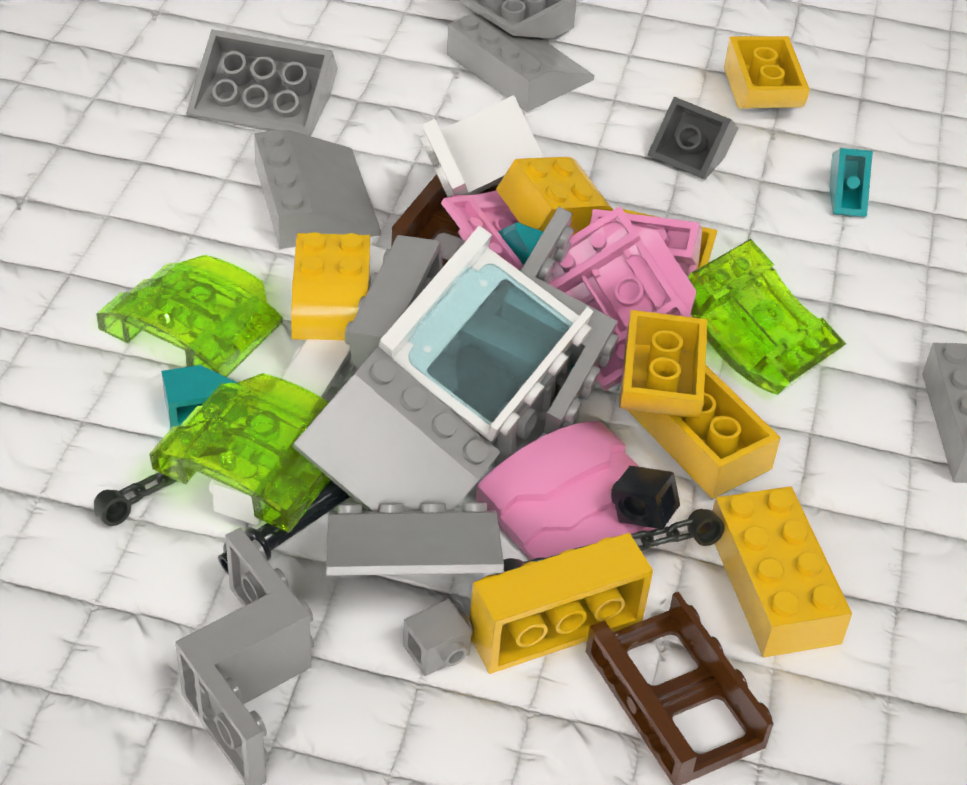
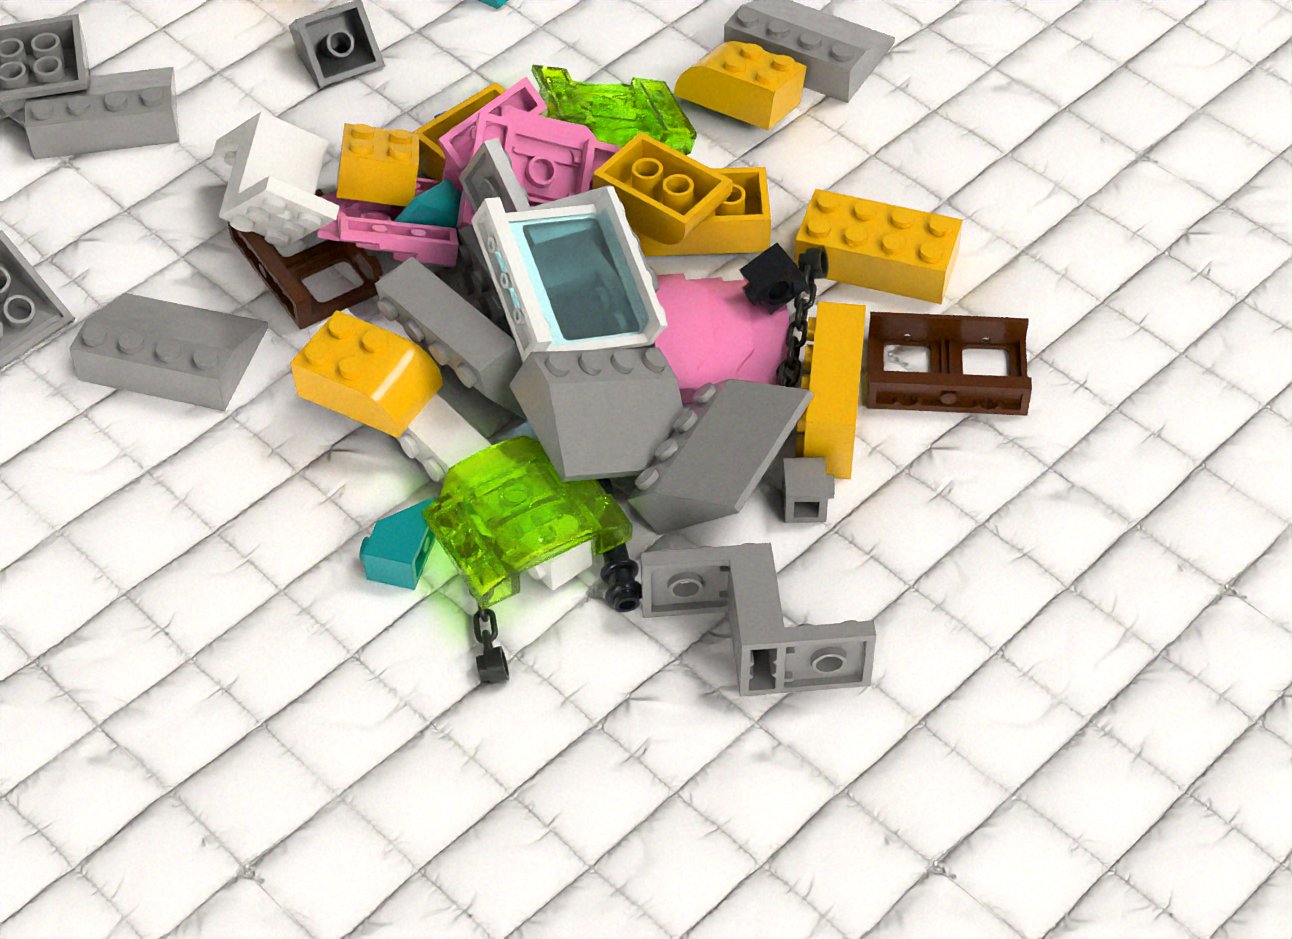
camera: 55 degrees left, 5 degrees up
(200, 307) = (272, 502): clear neon green slope -> none
(885, 393) = (744, 83): none -> yellow brick

